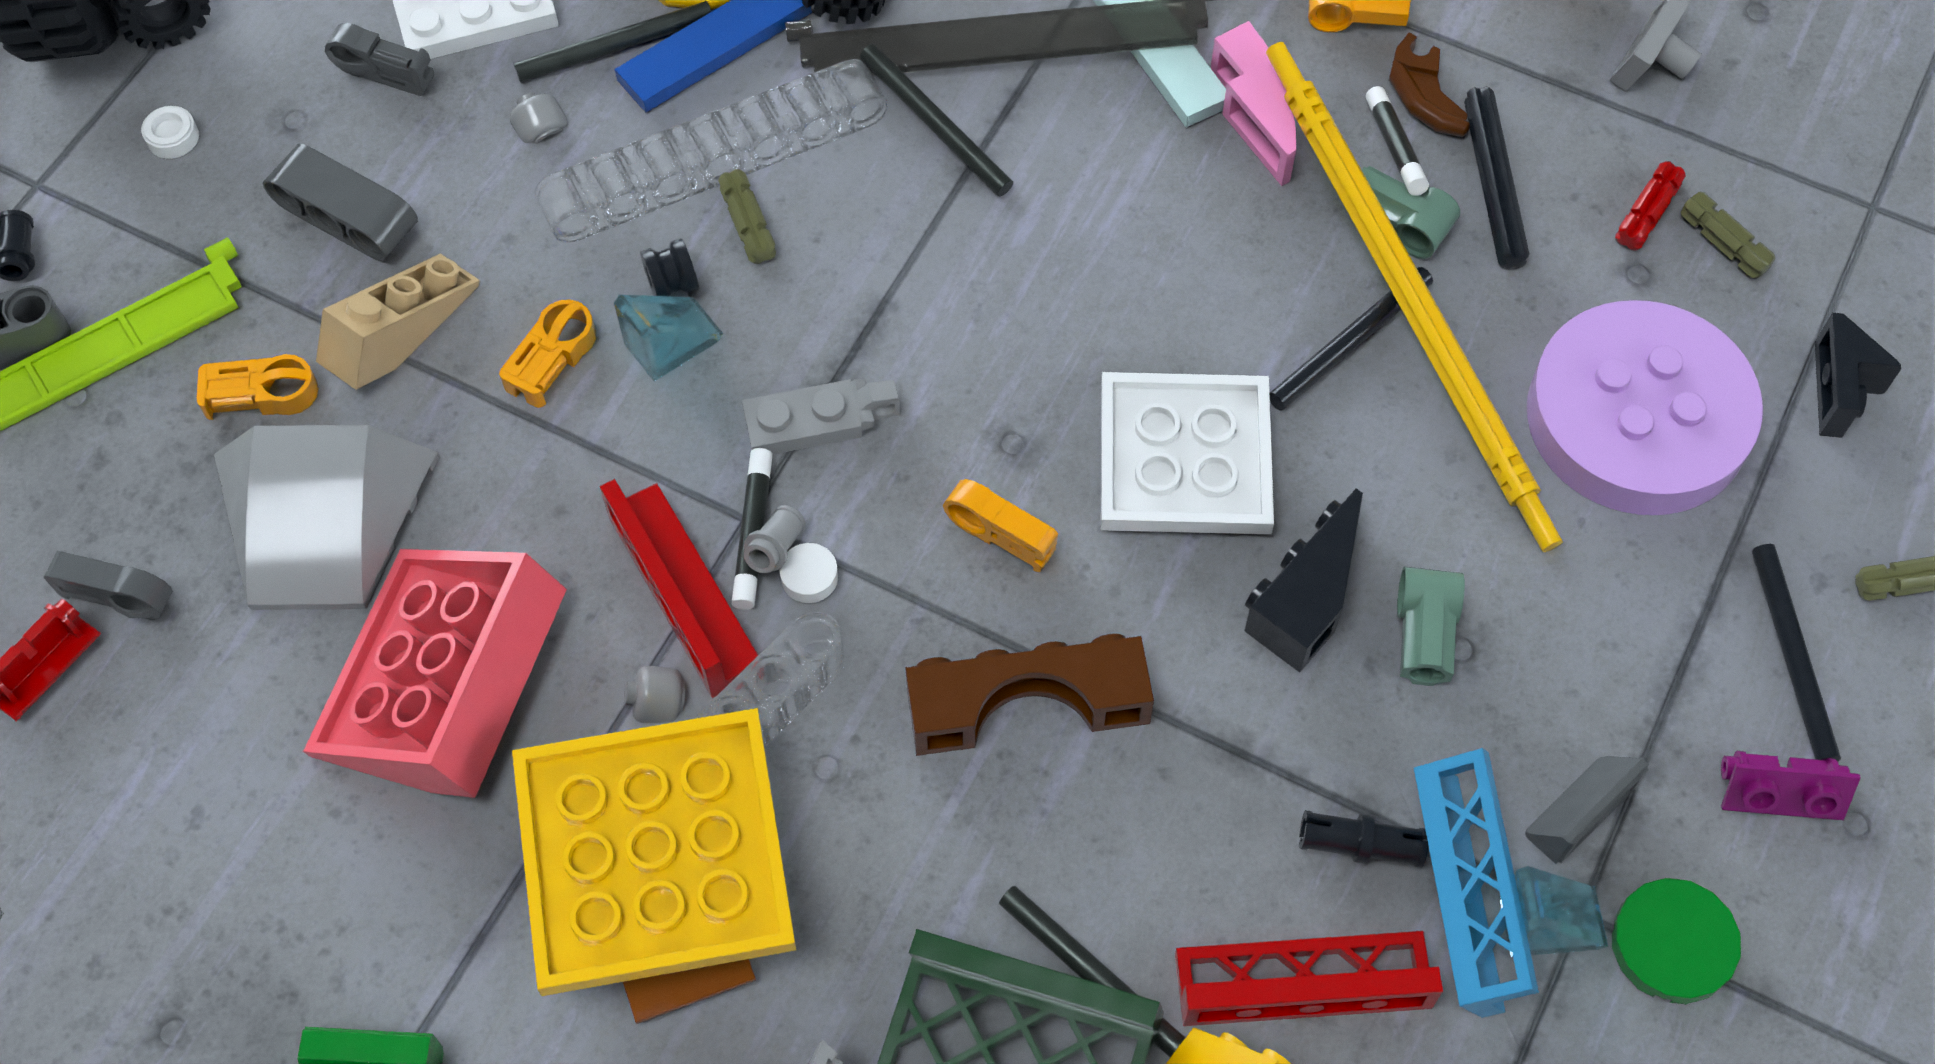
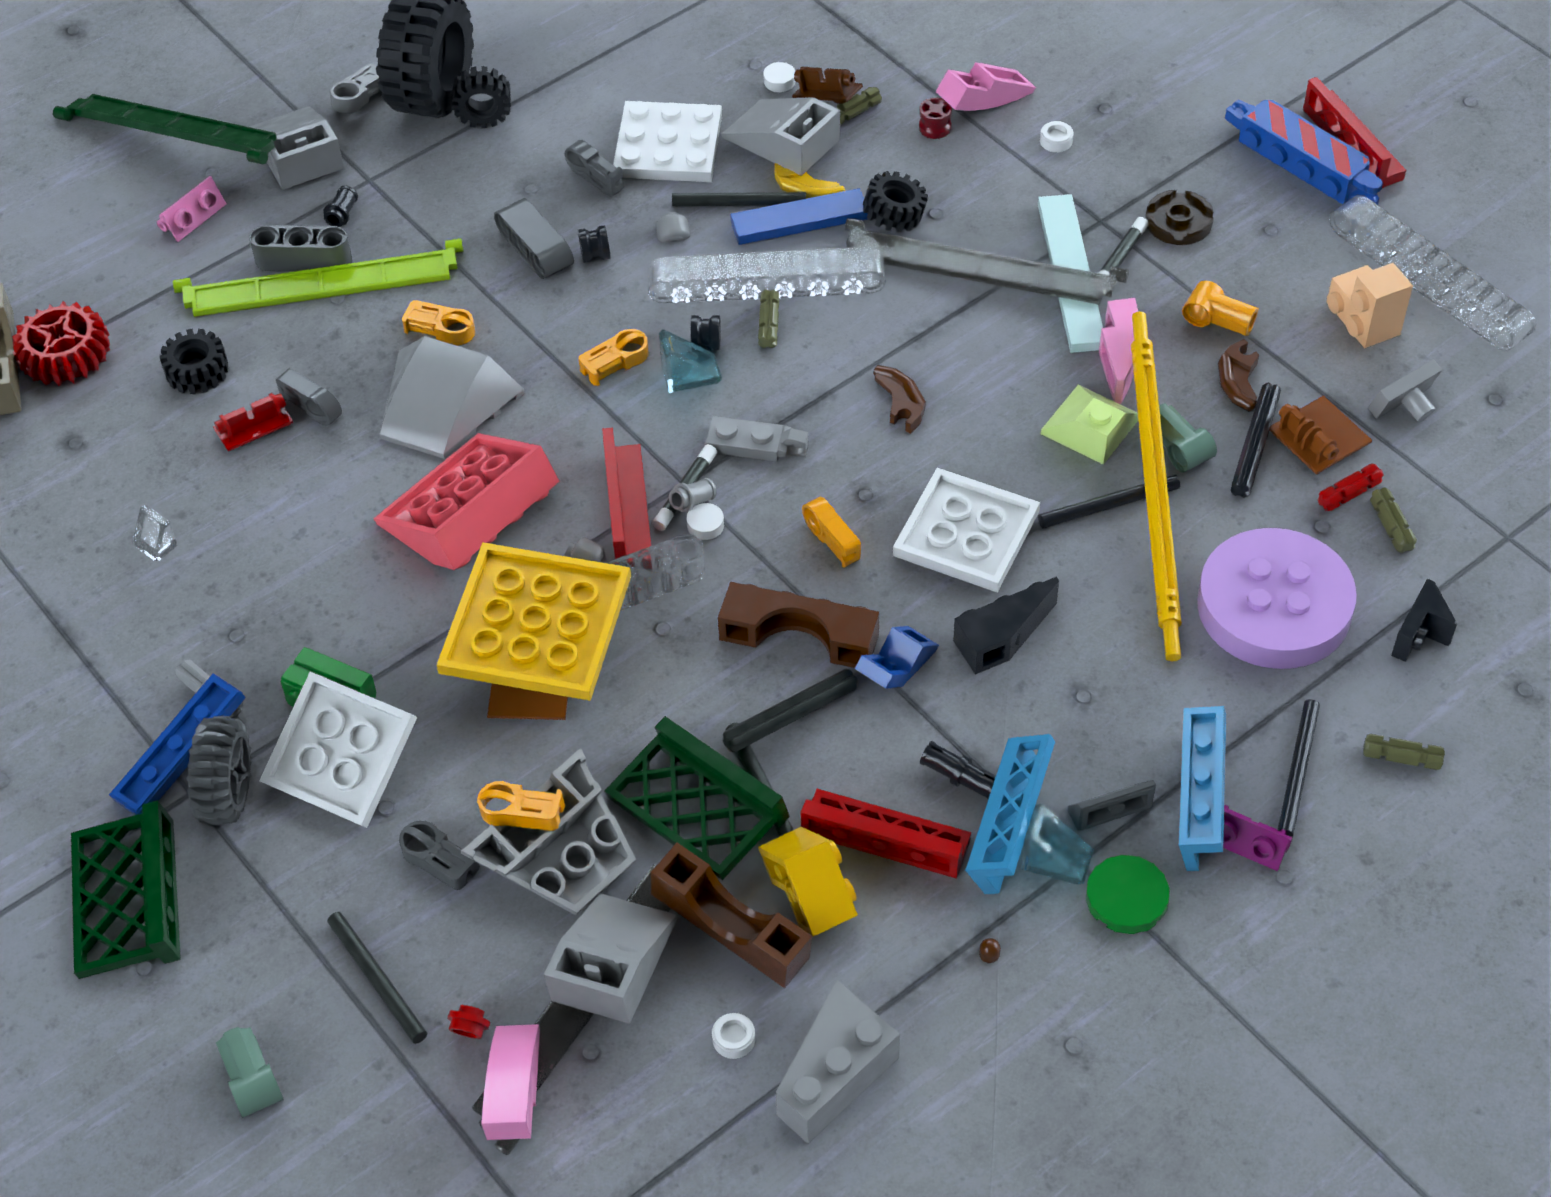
camera: 25 degrees right, 10 degrees down
(170, 132) = (456, 173): white tile -> none
(390, 320) = (525, 310): tan slope -> none
(437, 182) = (594, 244): none -> black wheel
(936, 120) = (911, 299): pearl dark grey bar -> none
(998, 272) = (906, 397): none -> reddish brown piece
(1080, 840) = (789, 710): none -> pearl dark grey axle
(1188, 692) = (899, 657): none -> blue slope
(1267, 228) = (1090, 424): none -> yellowish green slope
(1397, 141) = (1197, 396): bar -> none
(1430, 610) = (1069, 664): sand green piece -> none
(1572, 141) = (1318, 433): none -> dark orange hinge
(1707, 737) = (1202, 783): none -> dark azure fence

